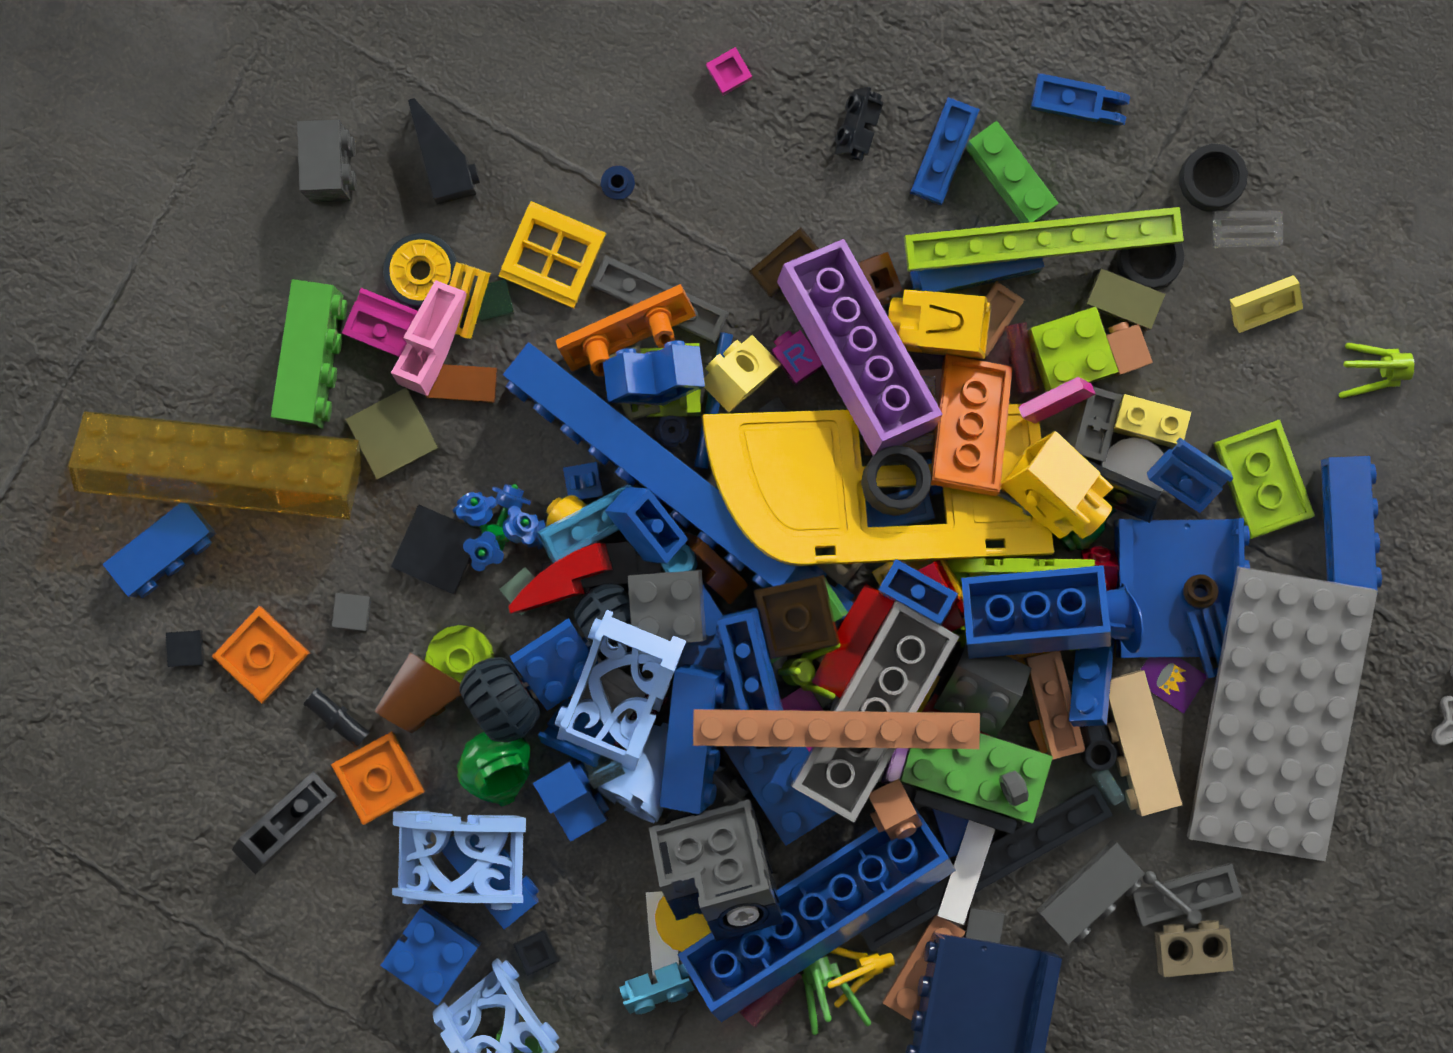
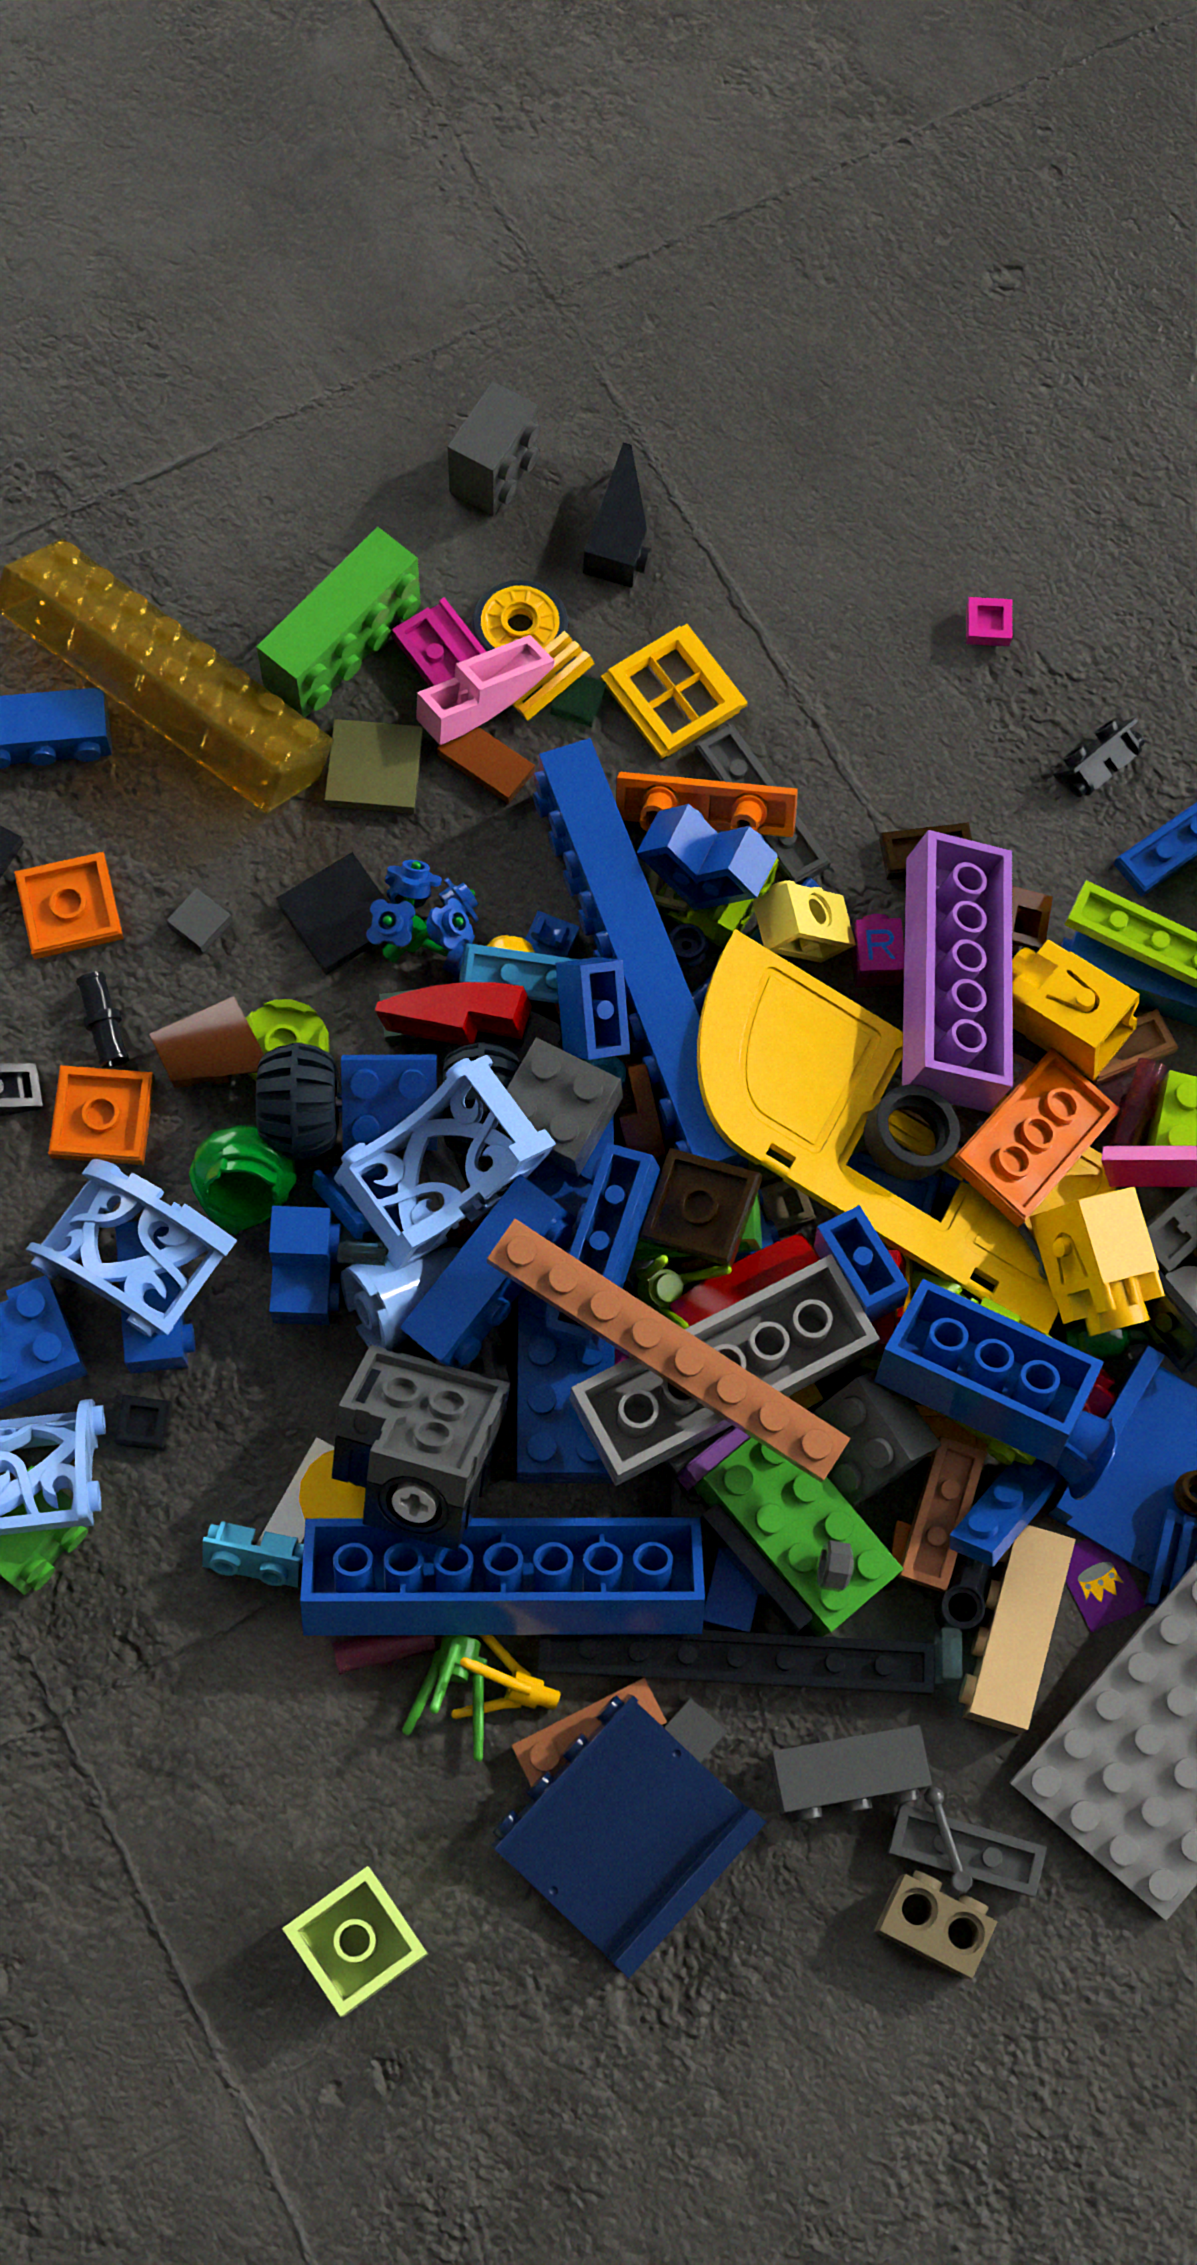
camera: 25 degrees right, 15 degrees down
(617, 193) = (790, 671): dark blue plate -> none
(894, 811) = (673, 1506): nougat brick -> none
(967, 873) = (712, 1648): white sticker -> none

